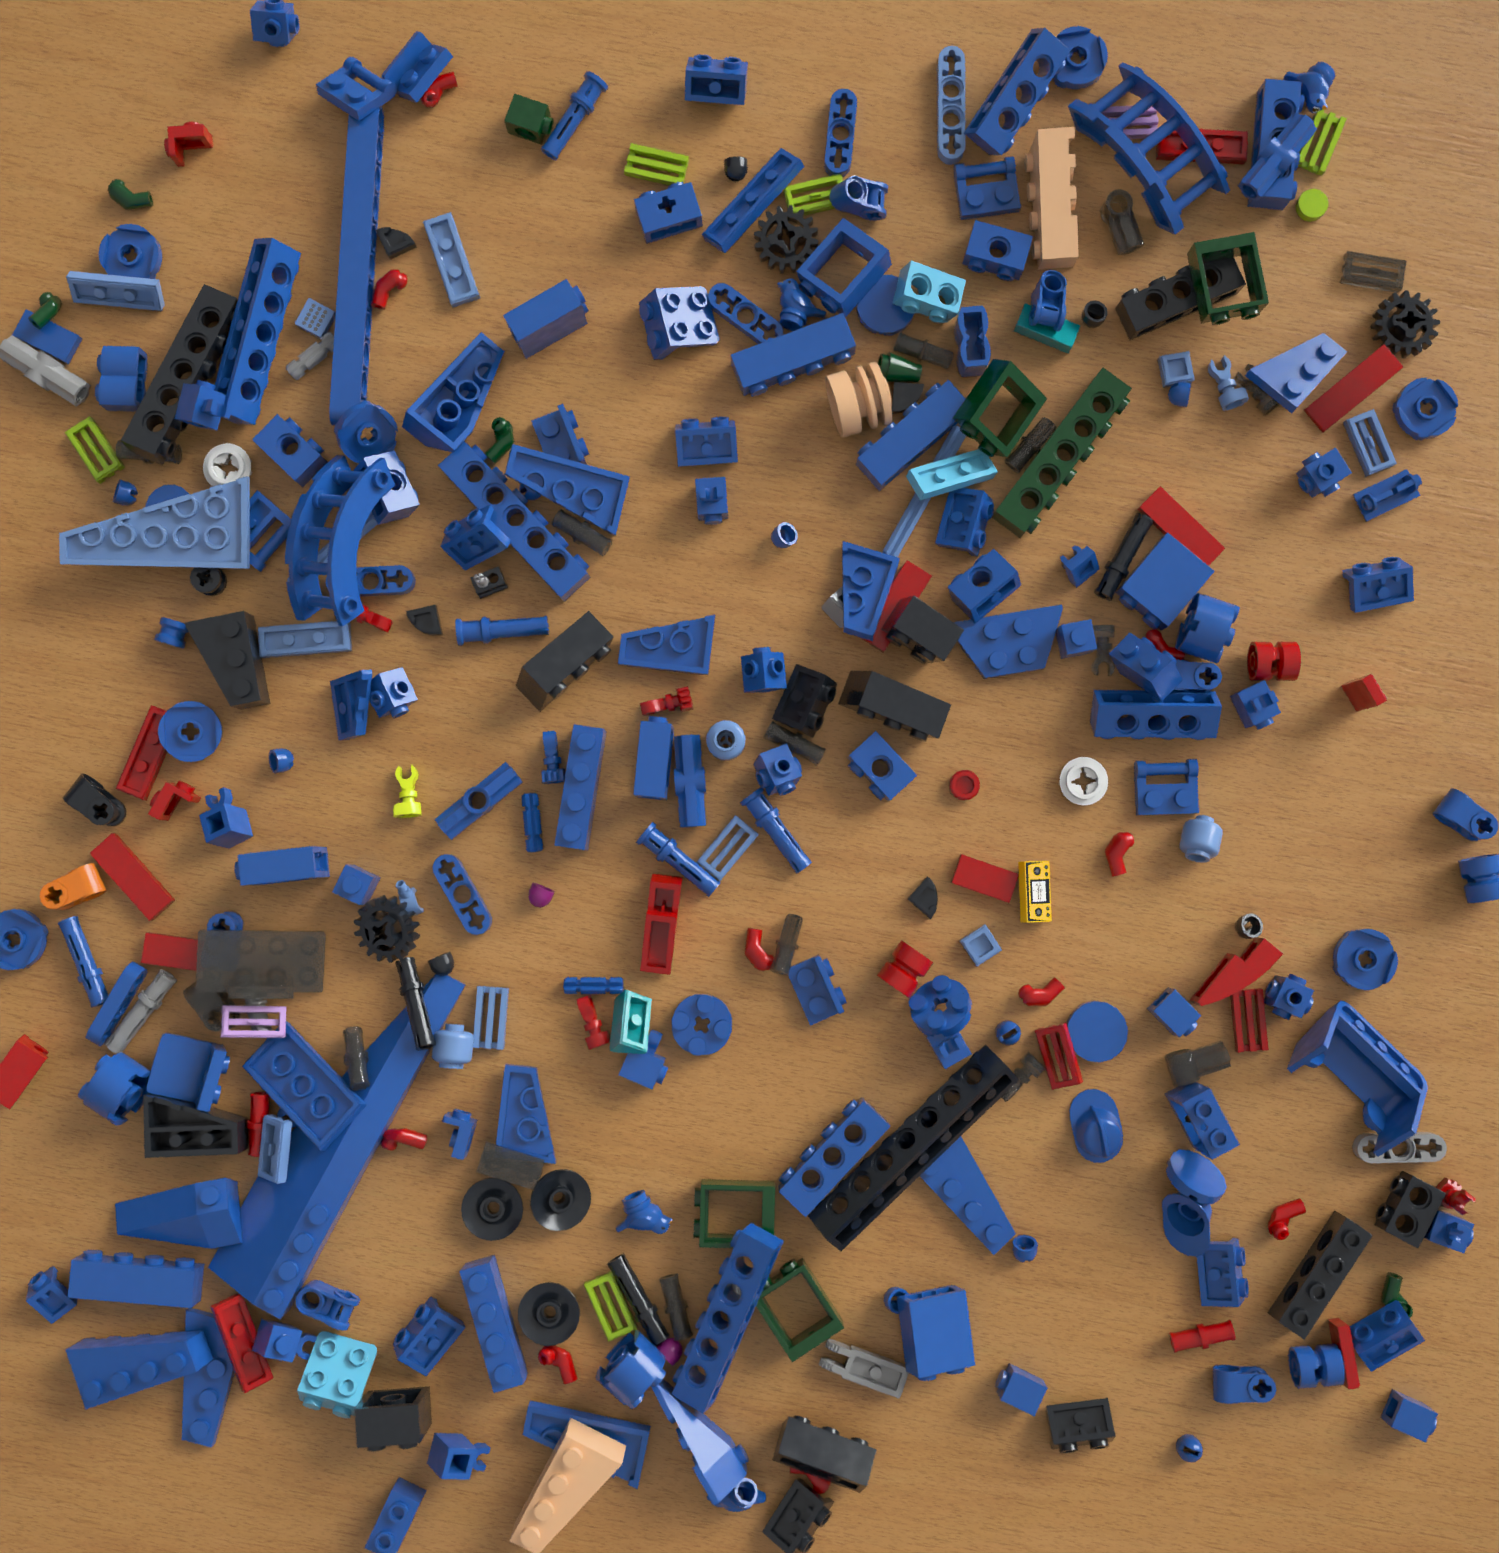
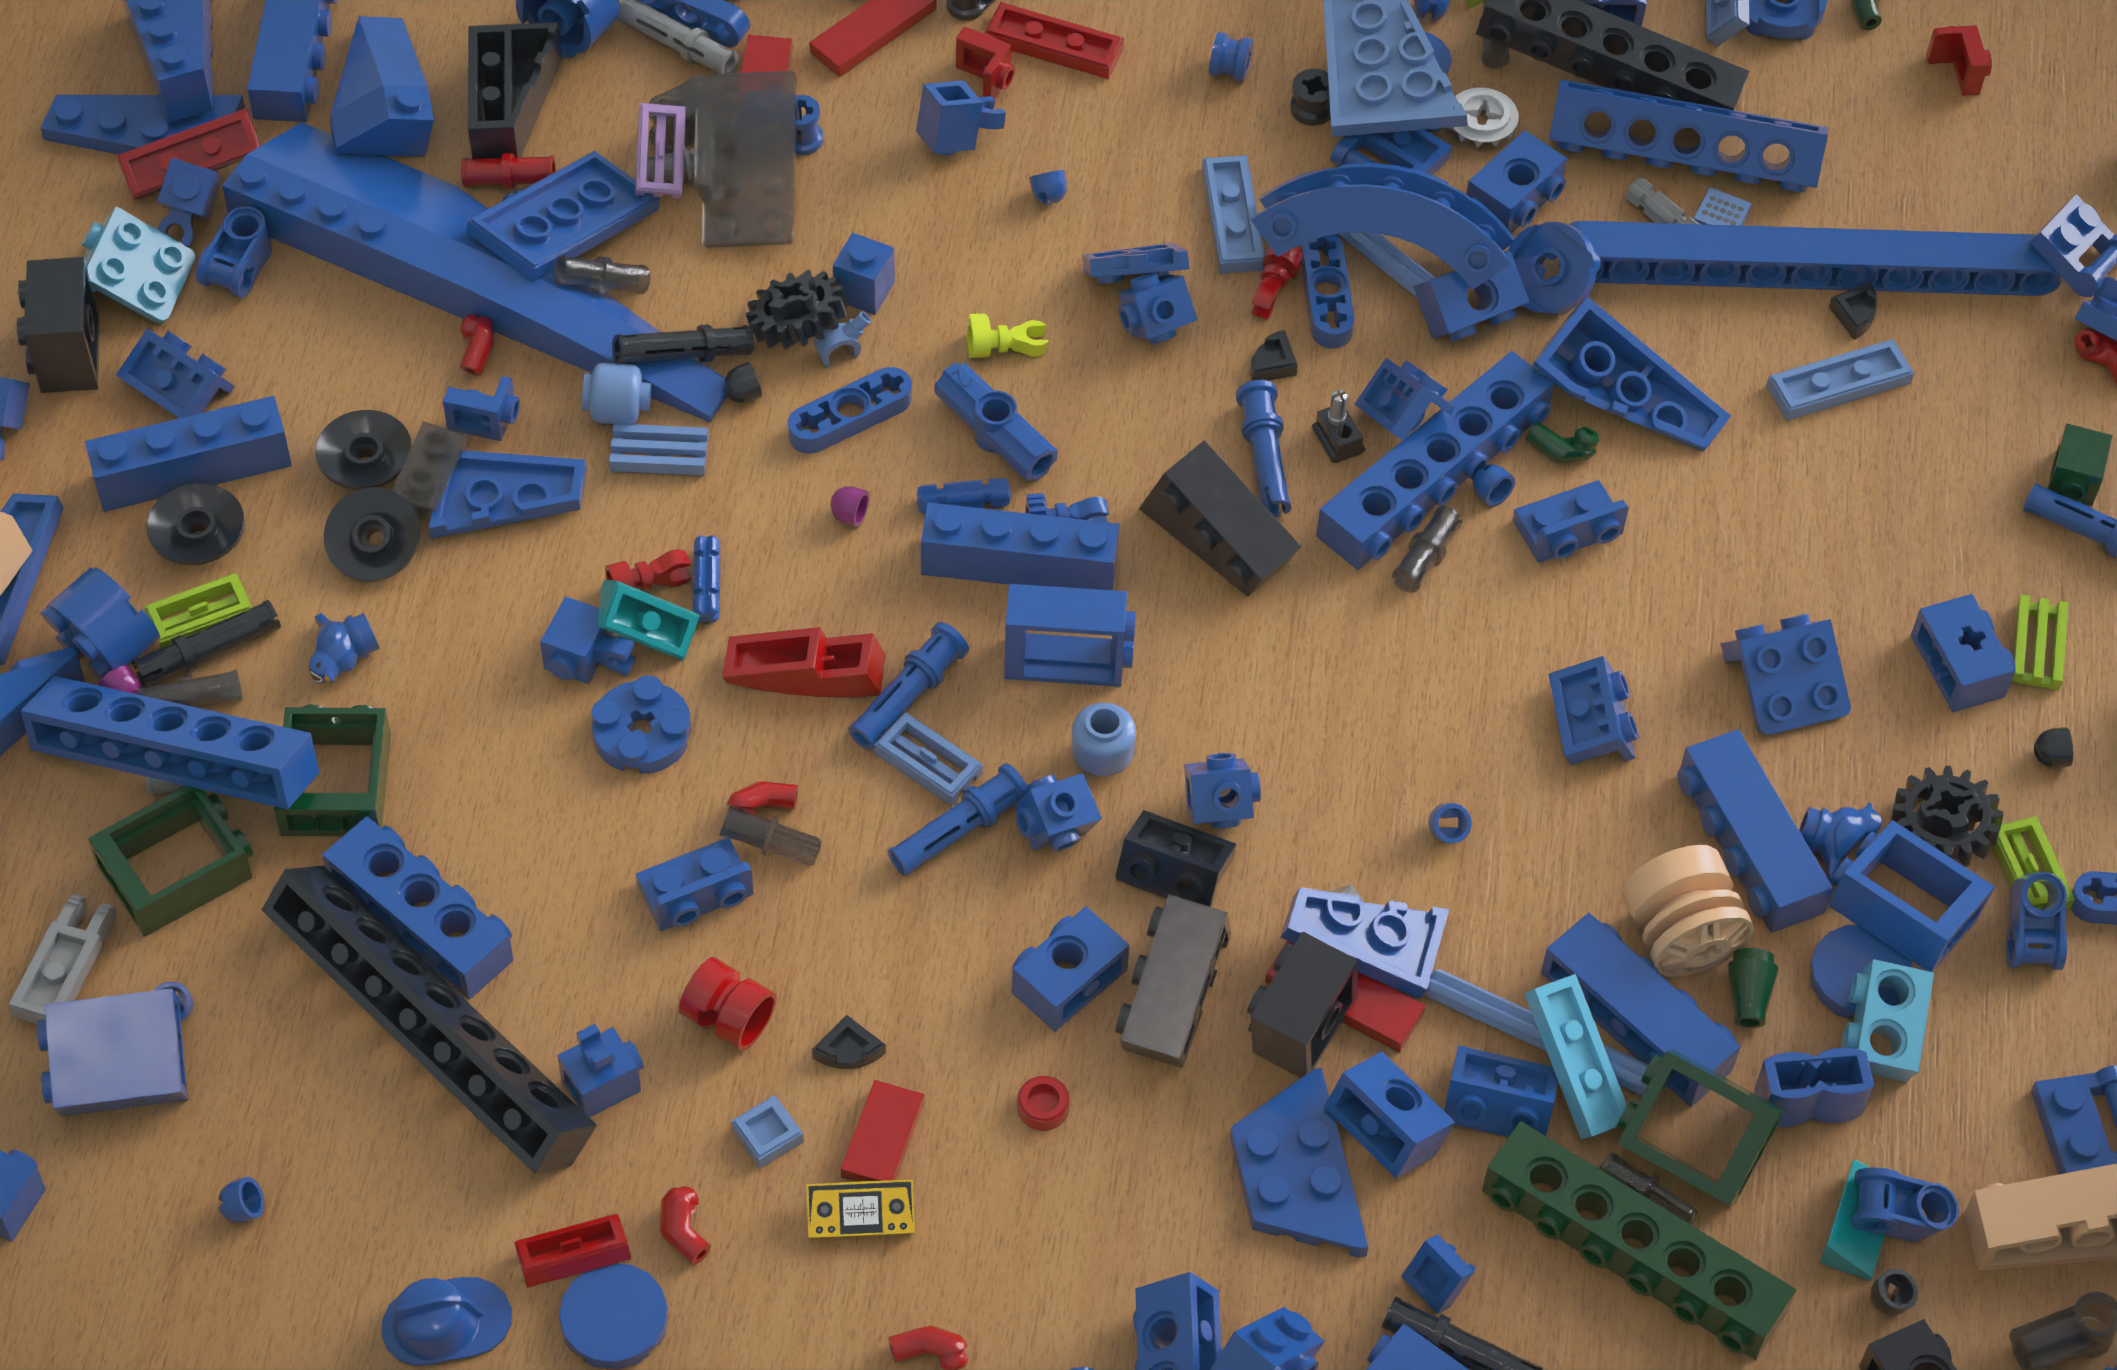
camera: 85 degrees right, 30 degrees down
(177, 719) = (1092, 101): blue plate -> none
(188, 1070) = (591, 84): blue bracket -> none
(202, 405) = (1565, 59): blue brick -> none
(232, 654) = (1195, 121): black wedge -> none
(274, 1148) = (472, 180): medium blue tile -> none
(282, 866) = (891, 178): blue window -> none
(385, 285) = (1782, 294): red arm -> none
(547, 318) = (1759, 482): blue brick -> none
(560, 1358) = (124, 545): red arm -> none
(578, 487) = (1497, 538): blue wing -> none
(672, 647) = (1252, 673): blue wing -> none
(682, 700) = (1166, 685): red piece -> none
(689, 781) = (1032, 697): blue piece -> none
(711, 500) = (1498, 717): blue brick -> none
(723, 310) = (1812, 749): blue beam -> none
(753, 200) = (2006, 773): blue tile -> none
(795, 742) = (1103, 845): clear smoke pin -> none
(905, 395) = (1711, 998): black tile -> none
(923, 351) = (1790, 1022): clear smoke axle -> none
(933, 993) = (663, 1052): blue plate -> none
(966, 1192) = (344, 1111): blue wing -> none
(1004, 1027) = (605, 1180): blue hinge -> none
(1012, 244) = (1996, 1110): blue brick -> none
(1031, 1066) = (555, 1203): clear smoke piece -> none
(1076, 639) = (1307, 1263): blue brick -> none
(1091, 769) = (1073, 1272): white gear -> none
(1102, 633) = (1320, 1314): clear smoke piece -> none

